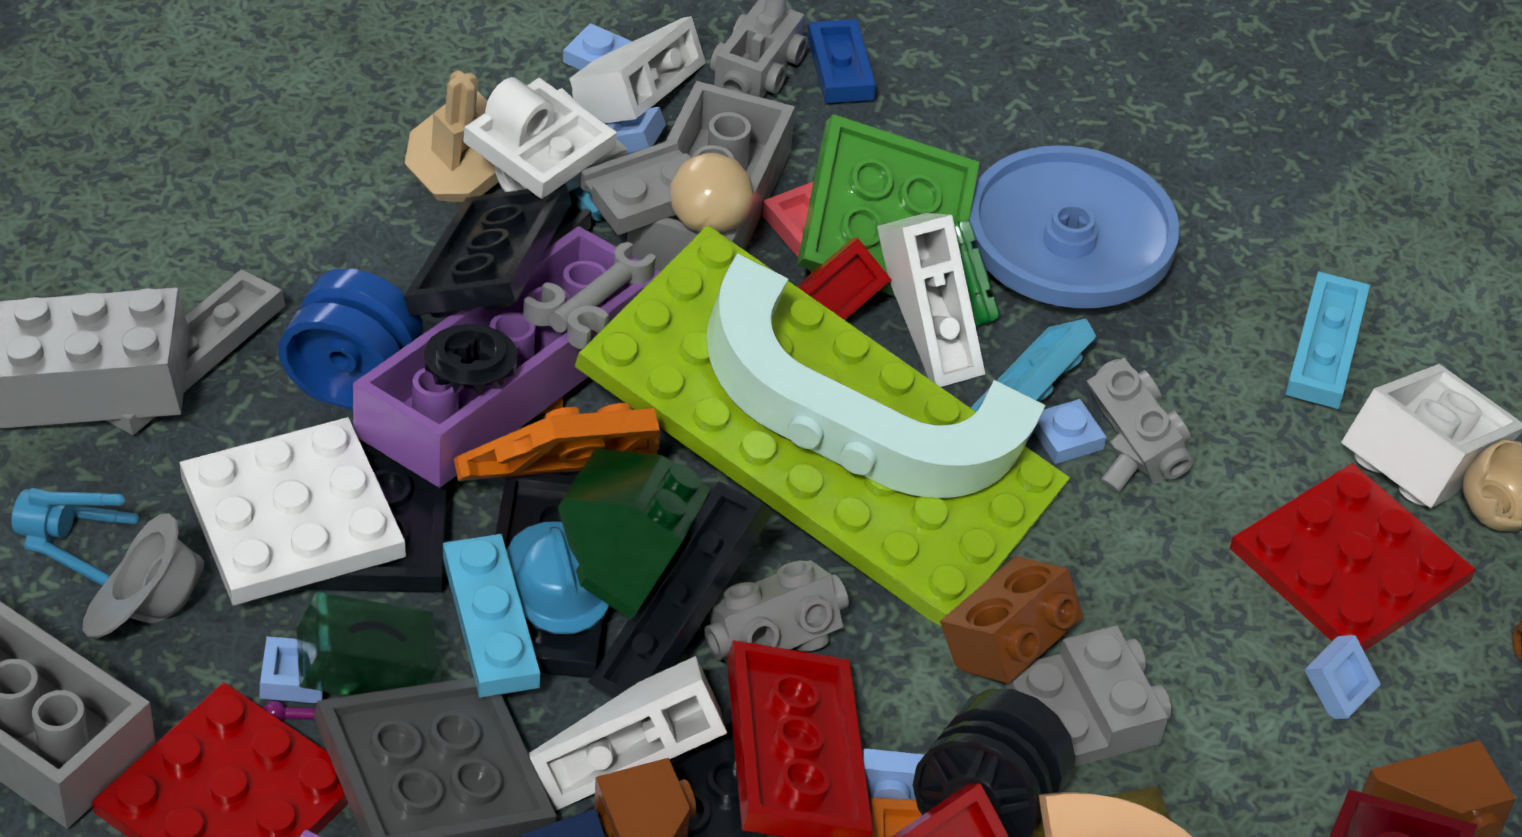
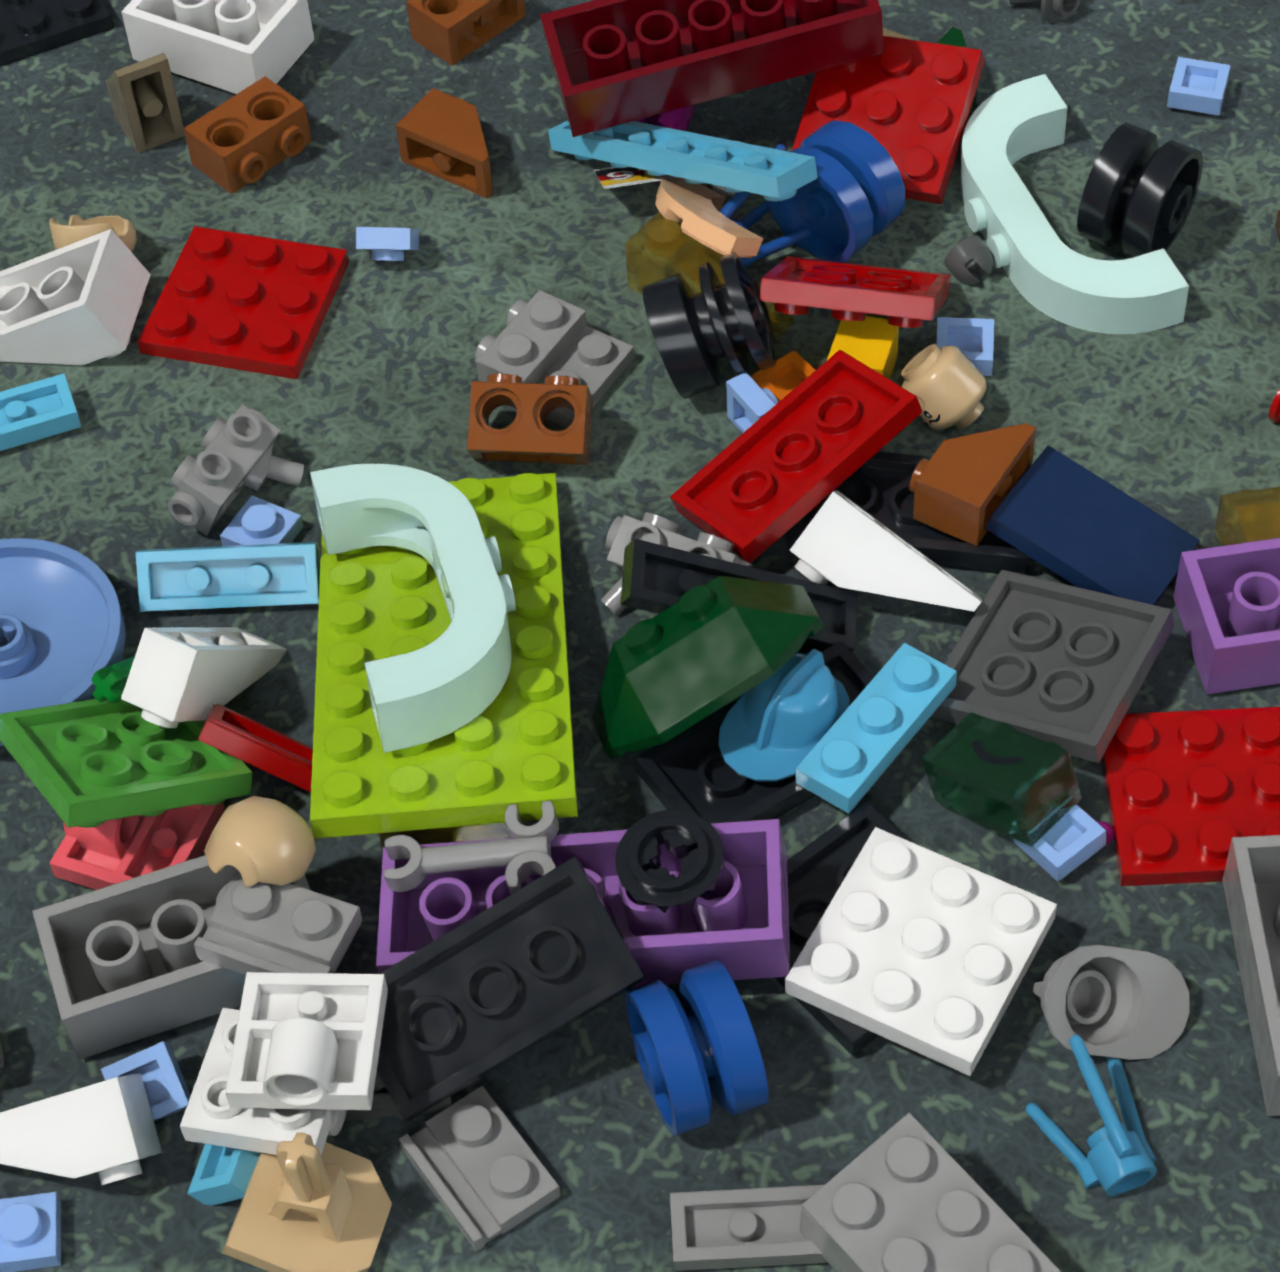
camera: 120 degrees left, 5 degrees up
(397, 240) = (480, 1168): none -> light grey plate
(562, 442) = (659, 753): orange wing -> none

